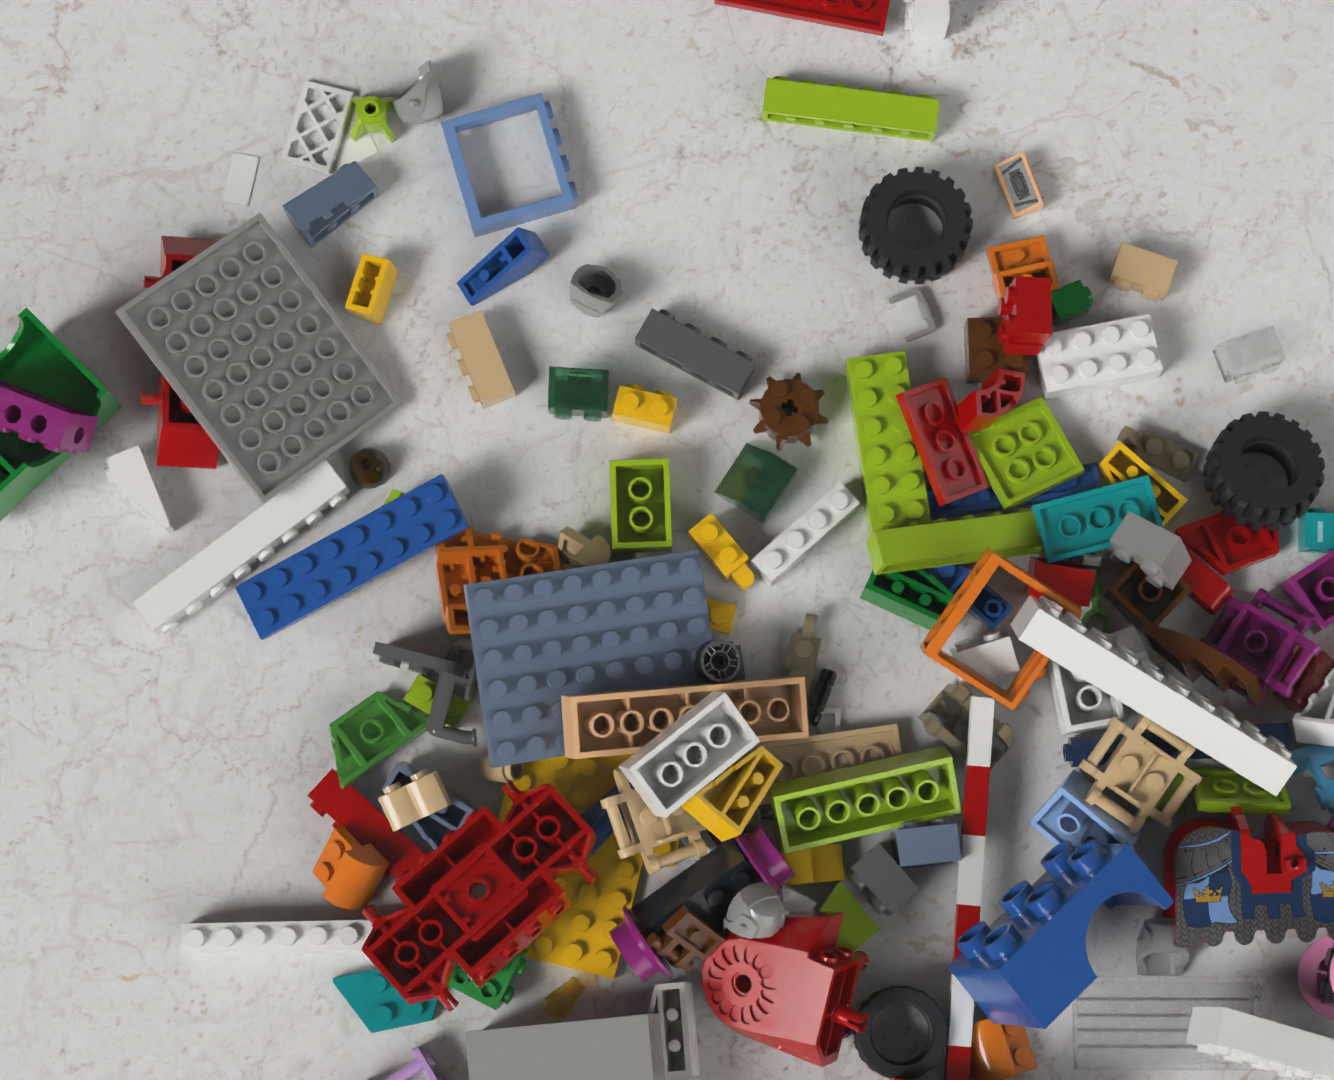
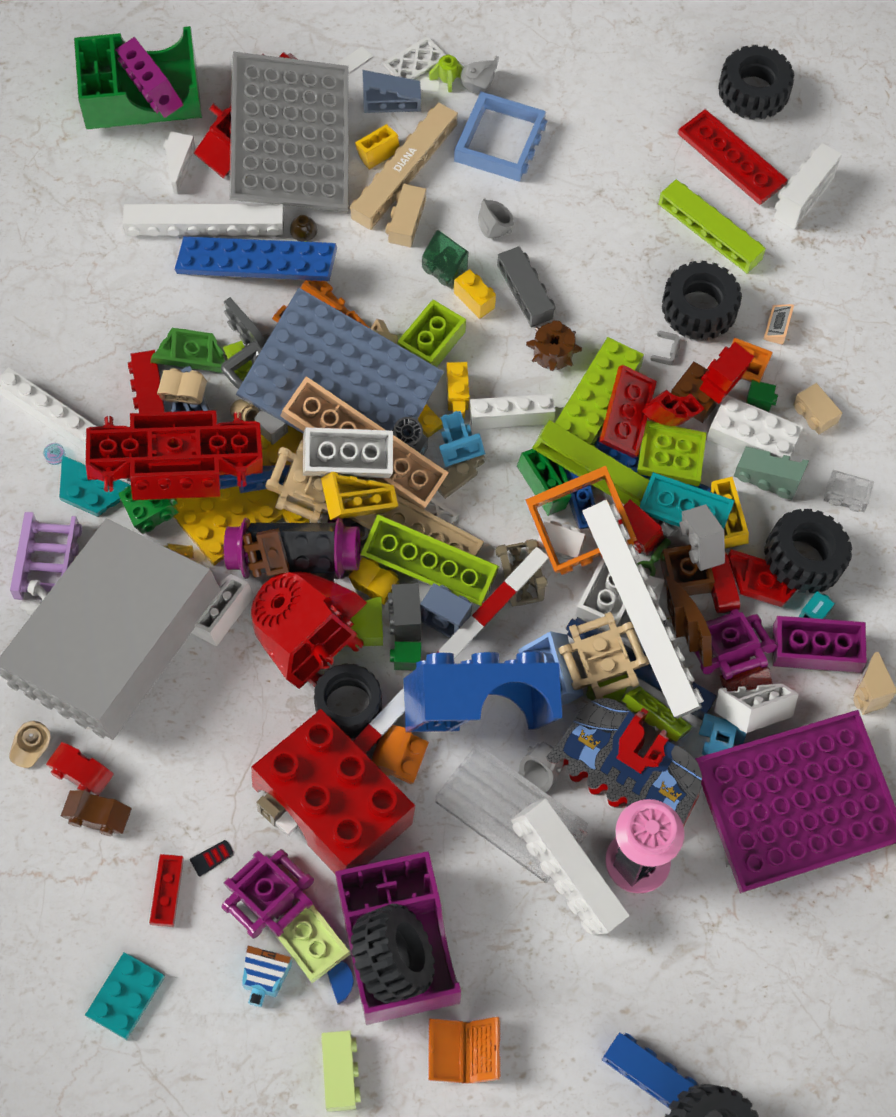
camera: 35 degrees right, 15 degrees down
(317, 982) = (53, 453): none -> clear light blue tile
(349, 870) = (119, 402): orange brick -> none
(424, 292) = (404, 165): none -> tan brick
(503, 265) = (460, 179): blue slope -> none
(548, 769) = (271, 427): none -> light grey brick
(755, 912) = (317, 561): light grey helmet -> none
(756, 482) = (508, 372): clear green slope -> none
(760, 609) = (459, 437): none -> dark azure tile
(820, 696) = (451, 499): black axle -> none
(918, 927) = (405, 655): none -> green brick
(1150, 396) = (770, 472): none -> sand green wedge
(1160, 452) = (754, 508): dark tan plate -> none

